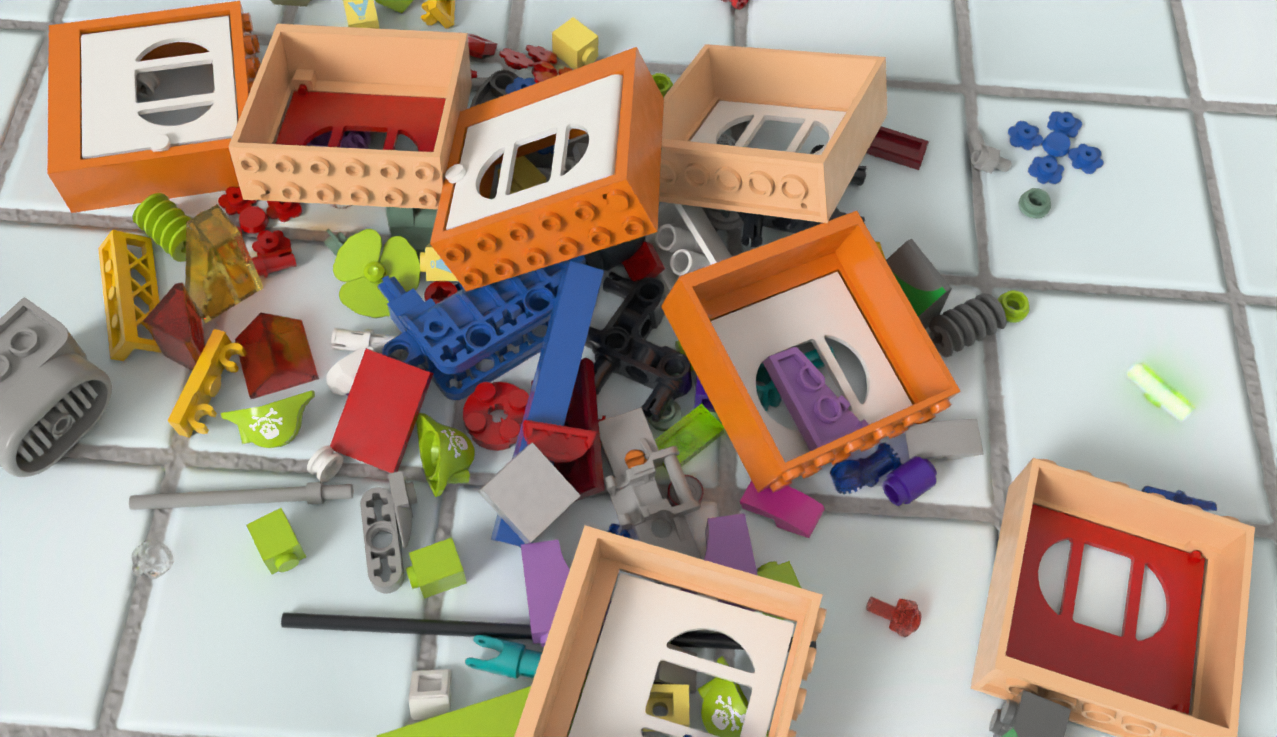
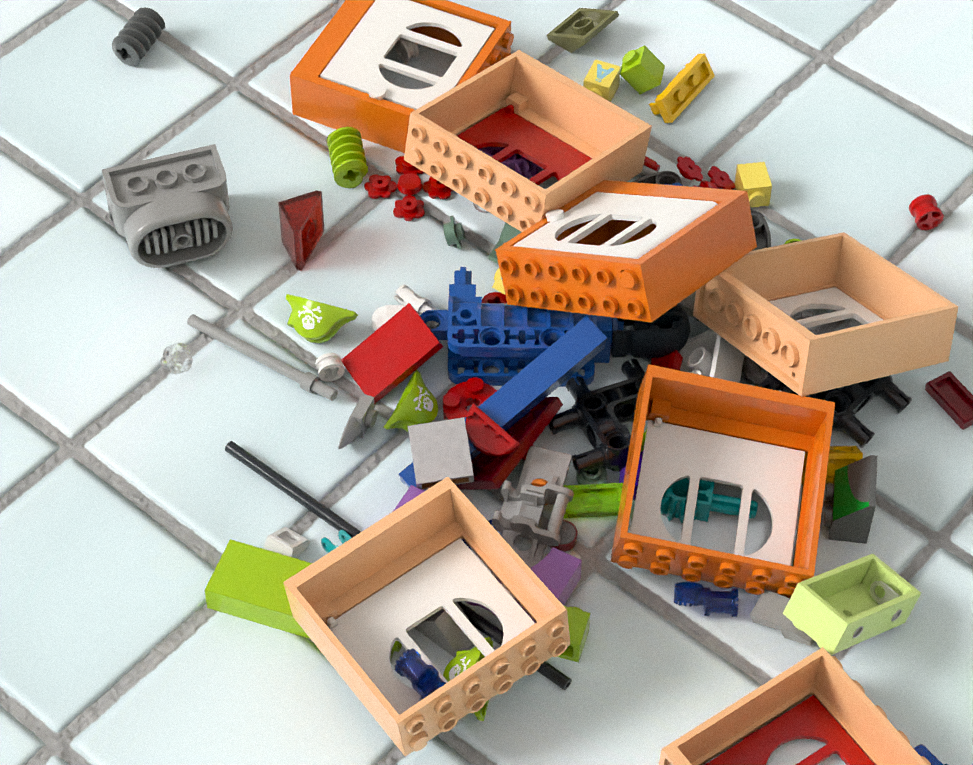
camera: 40 degrees right, 10 degrees down
(121, 289) = (283, 178): yellow fence -> none
(204, 384) = (291, 270): yellow plate -> none
(217, 264) = (356, 197): clear yellow wedge -> none
(274, 261) = (400, 219): red pin -> none
(275, 355) = (354, 280): clear red slope -> none
(276, 541) = (261, 394): lime brick -> none
(360, 267) = (455, 252): lime piece -> none
(395, 562) = (329, 450): light grey beam -> none
(436, 568) = (349, 473): lime brick -> none
(480, 46) = (673, 144): red plate -> none
(674, 699) = (432, 643): light yellow brick -> none
(787, 507) = (625, 587): dark pink slope -> none
(809, 400) = (700, 512): medium lavender wing -> none
(903, 618) = (648, 706): clear red plate -> none
(909, 481) = (735, 626): dark purple brick -> none
(966, 324) = (887, 551): dark grey piece -> none
(1004, 396) = (851, 603): none -> yellowish green piece
(1016, 300) = (941, 559): lime plate -> none

